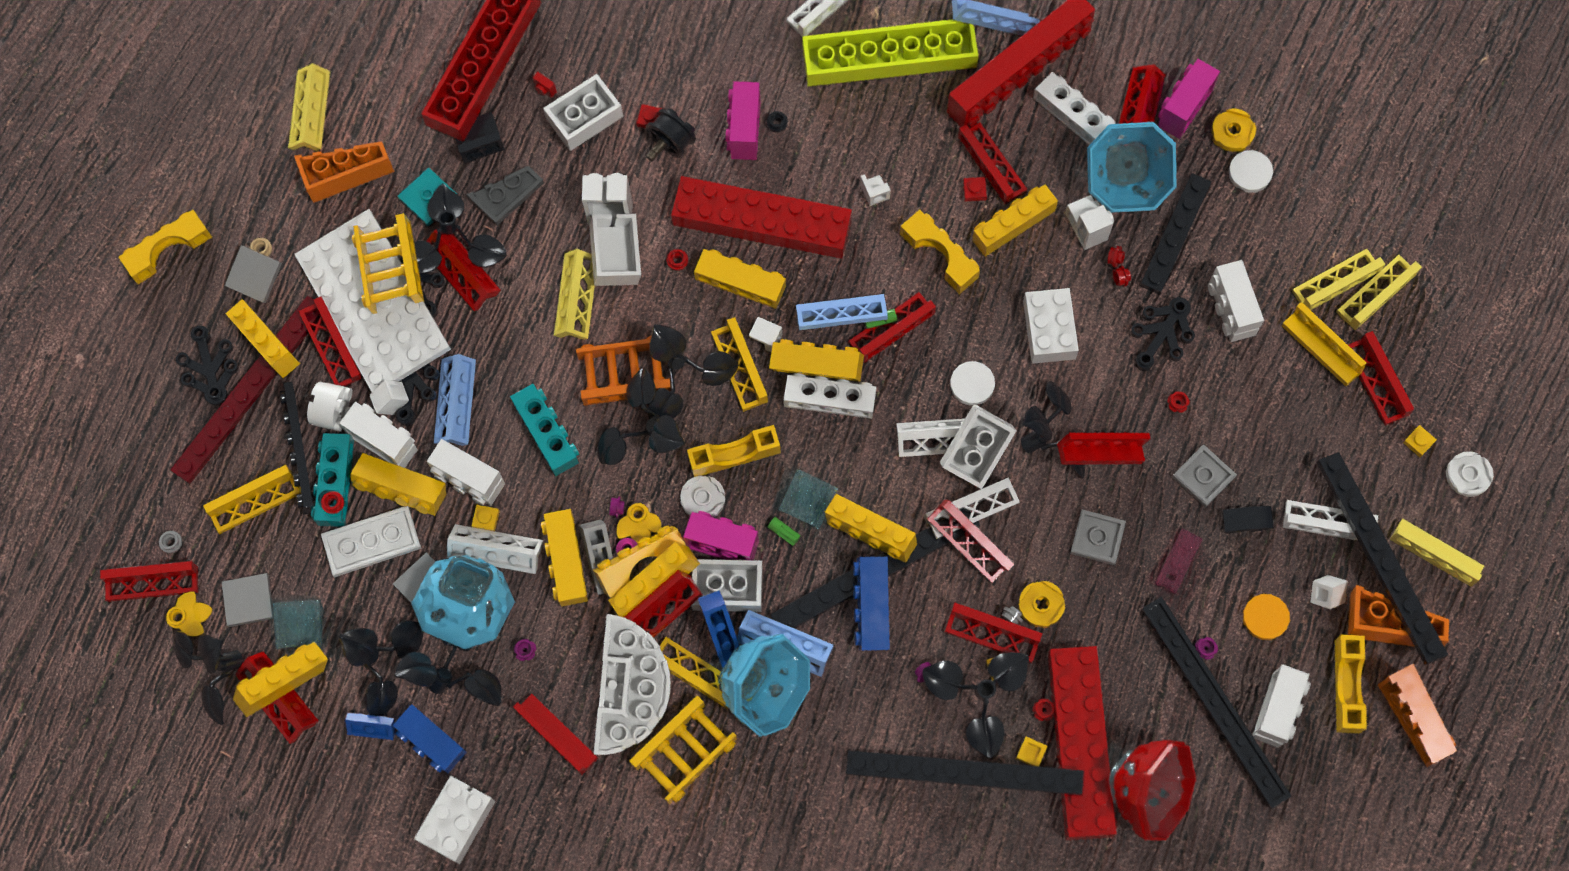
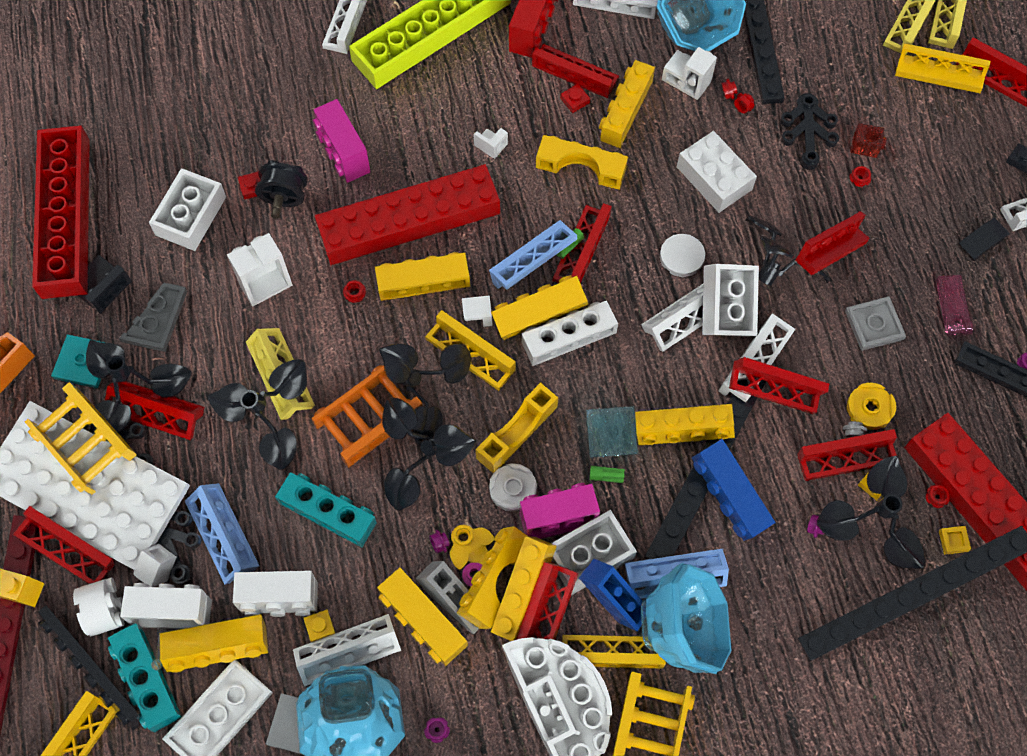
camera: 35 degrees left, 5 degrees down
(327, 498) = (153, 694): red plate -> none
(347, 474) = (156, 664): none -> clear hinge
(525, 301) = (233, 400): none -> black plant
(544, 85) = (136, 206): red plate -> none
(615, 250) = (293, 311): white piece -> none
(774, 116) = (368, 125): black plate -> none
(1204, 475) = (923, 224): light grey tile -> none
(1207, 363) = (860, 141): none -> clear red brick
(1235, 301) = (852, 70): white piece -> none

